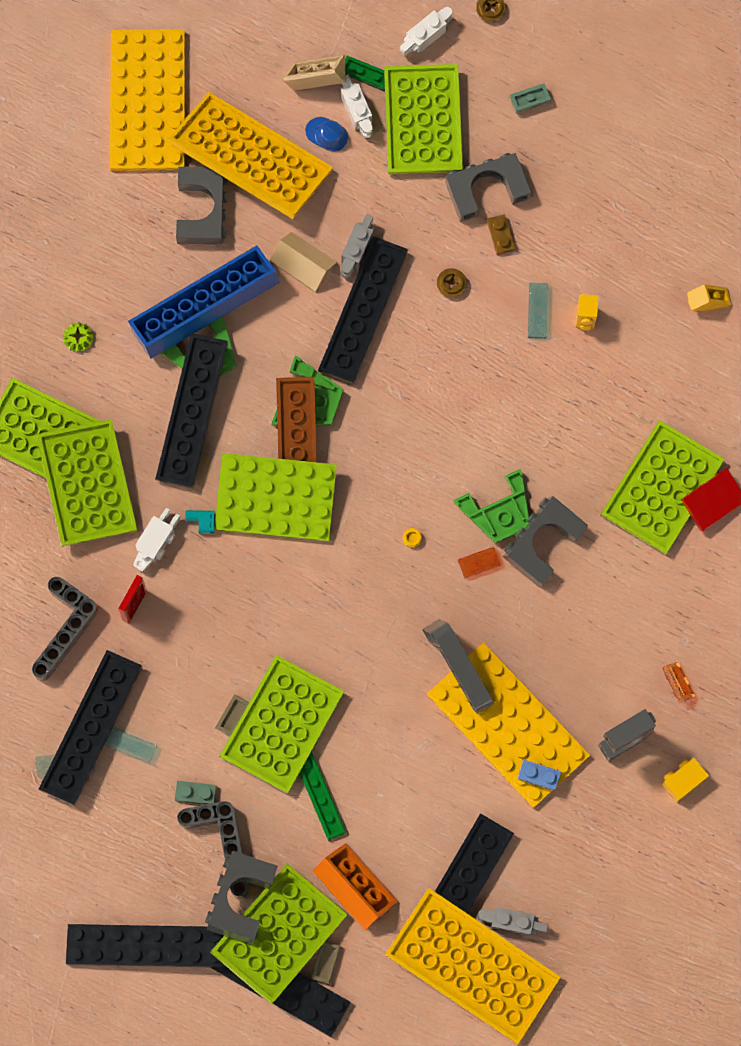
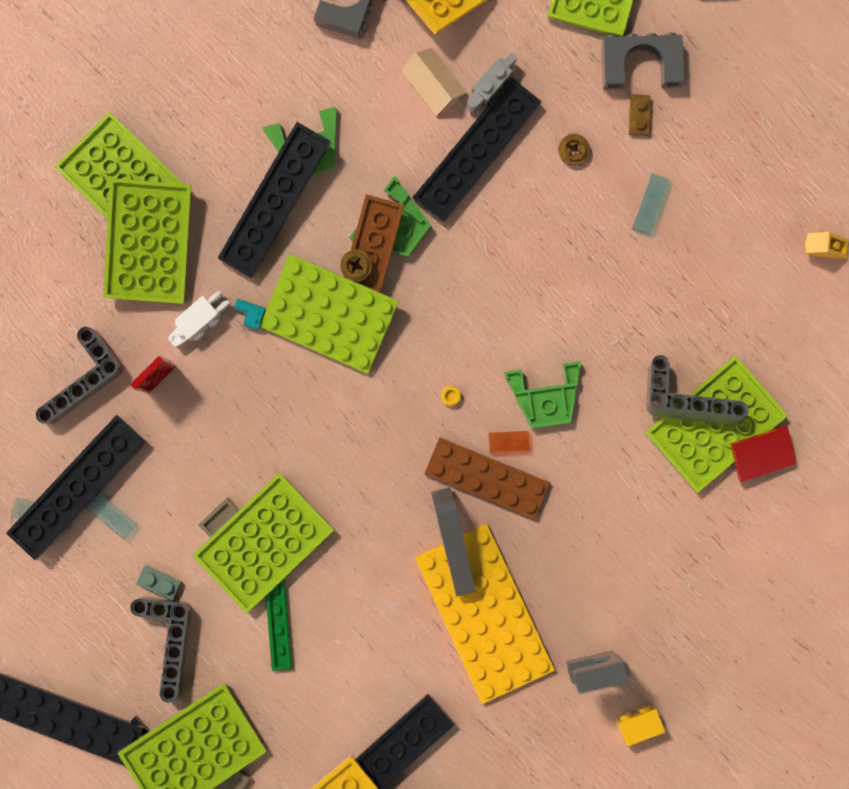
camera: 25 degrees right, 10 degrees up
(84, 342) = (191, 97): lime gear -> none
(203, 301) = (320, 93): blue brick -> none
(223, 918) = (137, 725): dark grey arch -> none
(282, 436) = (347, 268): none -> pearl gold gear
(355, 886) = (283, 726): orange slope -> none
(469, 601) = (487, 478): none -> dark orange plate
(521, 551) = (553, 446): dark grey arch -> none
(539, 775) = (497, 676): medium blue plate -> none
(586, 312) = (699, 222): yellow brick -> none
(629, 473) = (687, 402): none -> dark grey beam
(678, 682) = (666, 626): clear orange plate -> none

